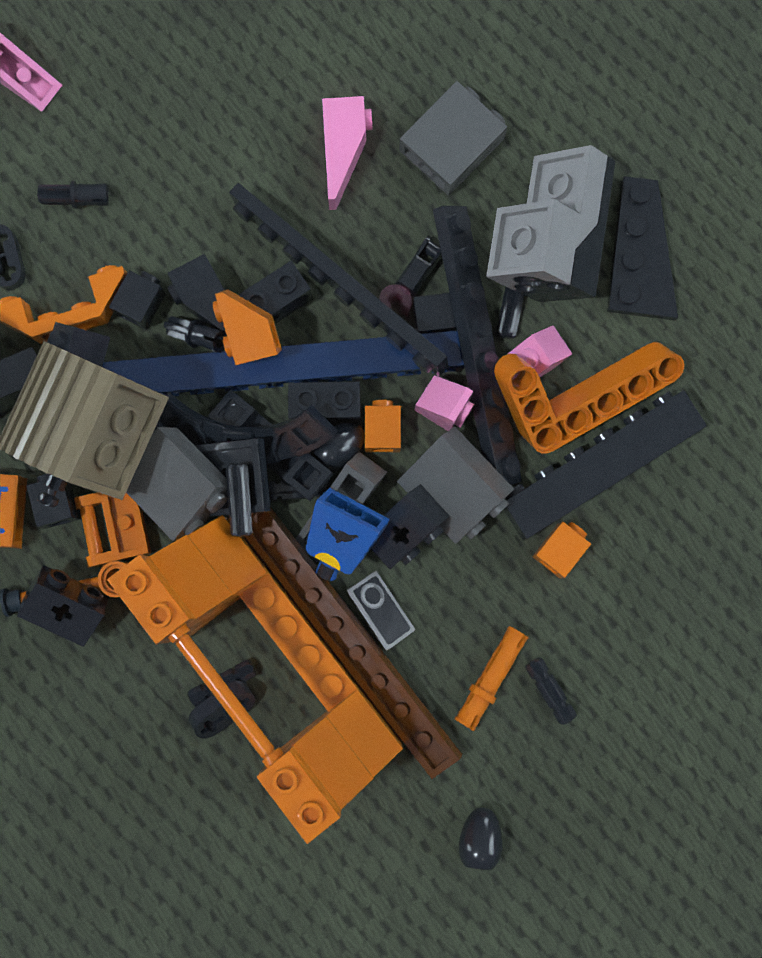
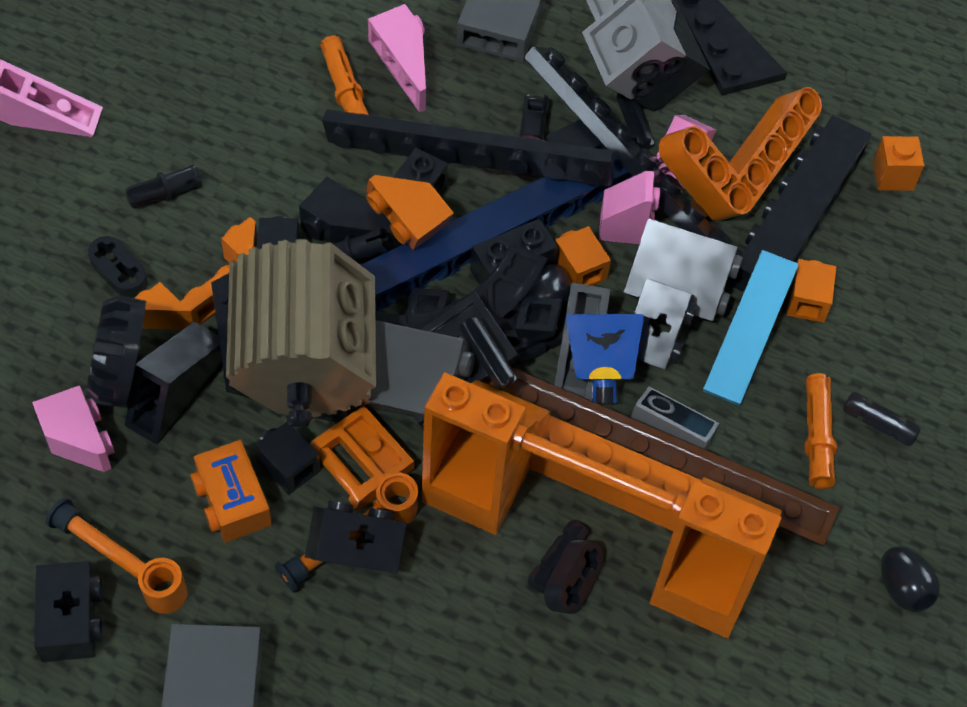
camera: 30 degrees left, 25 degrees down
(274, 164) = (348, 92): none -> orange pin
(485, 564) = (750, 328): none -> medium azure tile
(716, 462) = (898, 163): none -> orange brick

